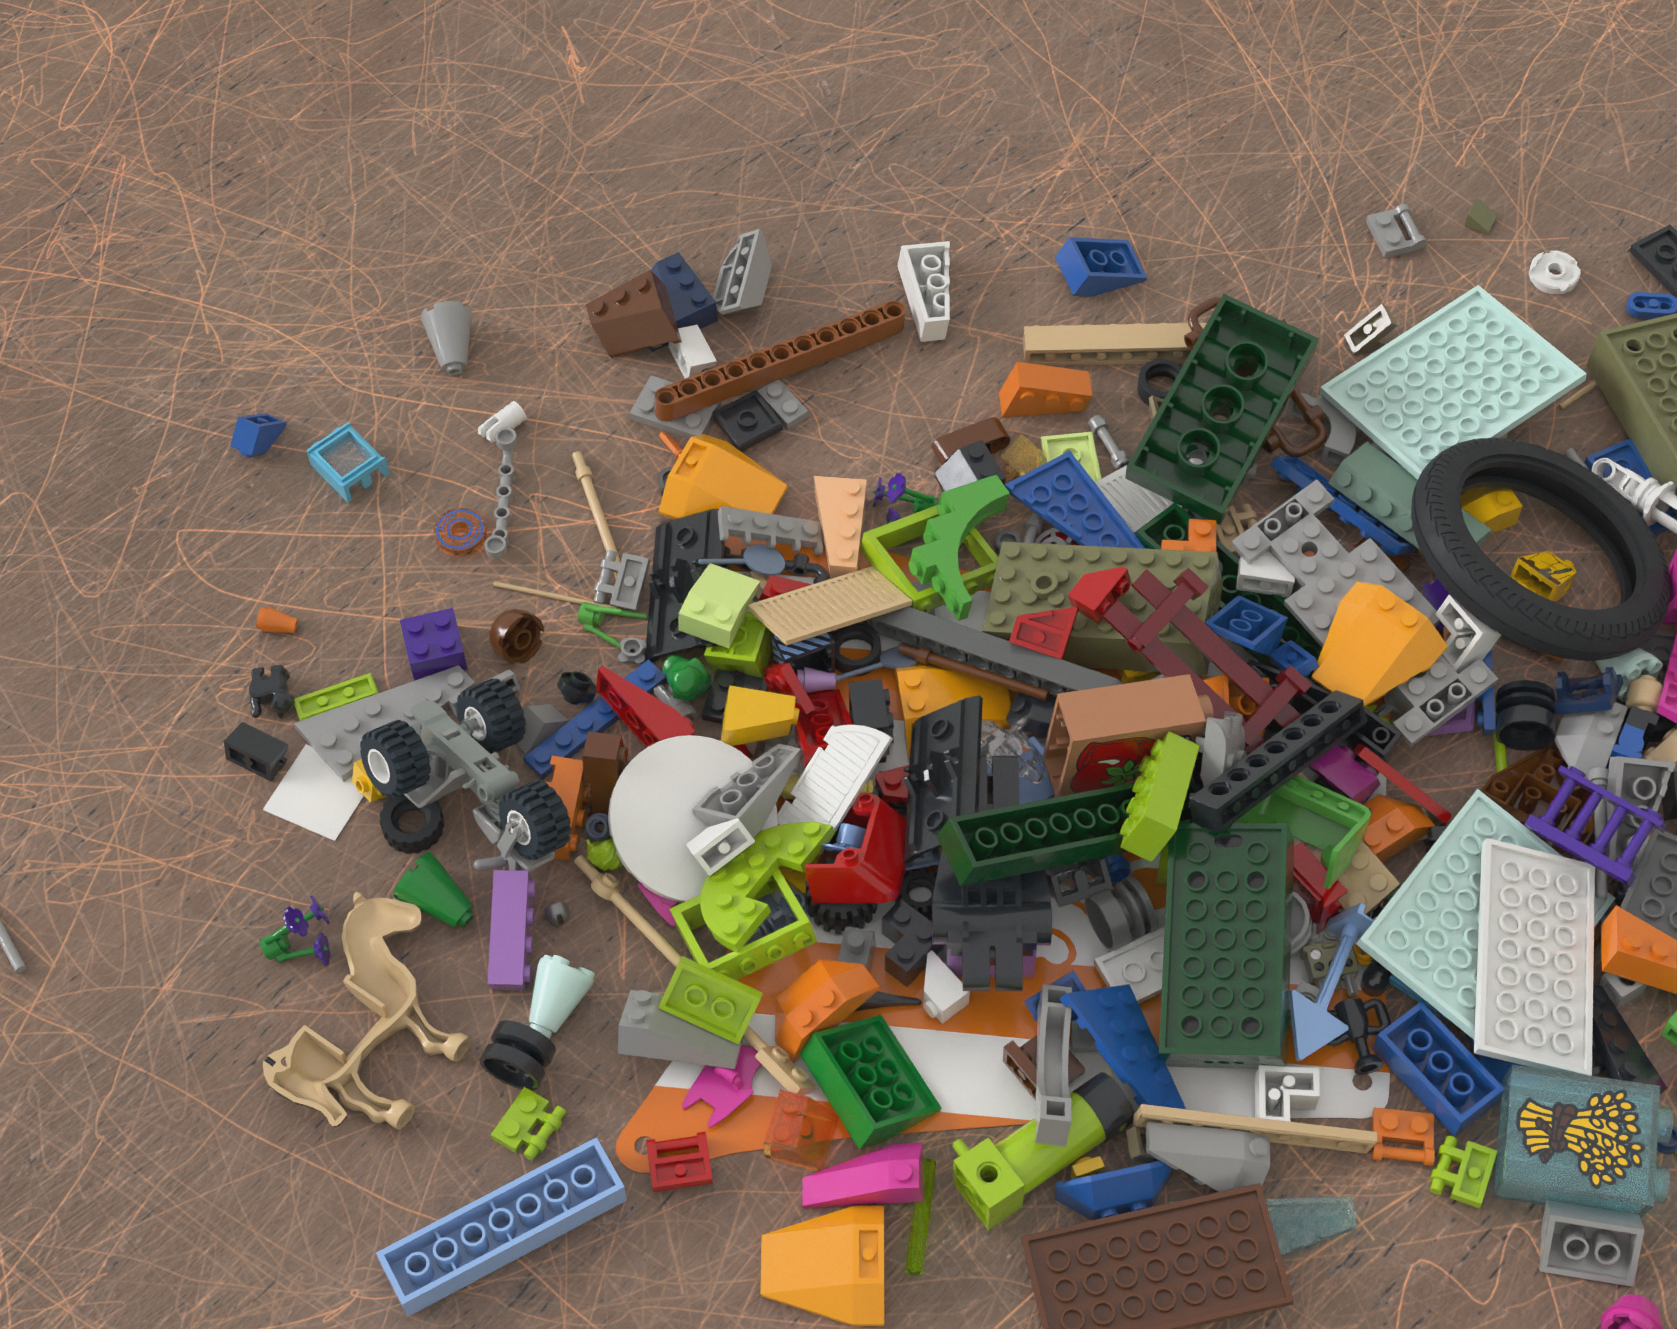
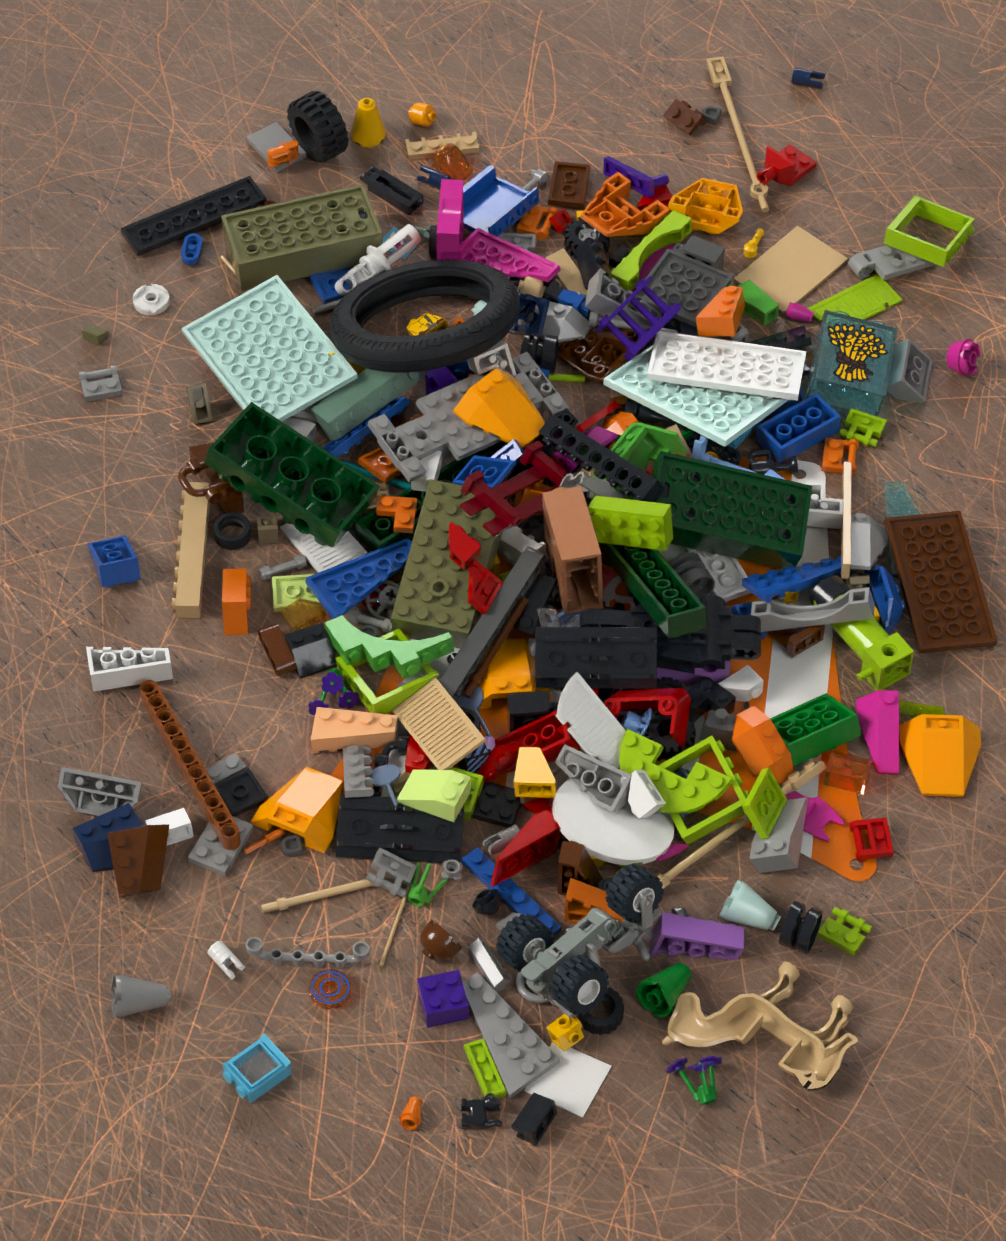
camera: 90 degrees left, 5 degrees down
(256, 433) = (221, 1137): blue slope -> none
(501, 1226) = (927, 938): light blue brick -> none
(686, 677) = (493, 820): green animal -> none

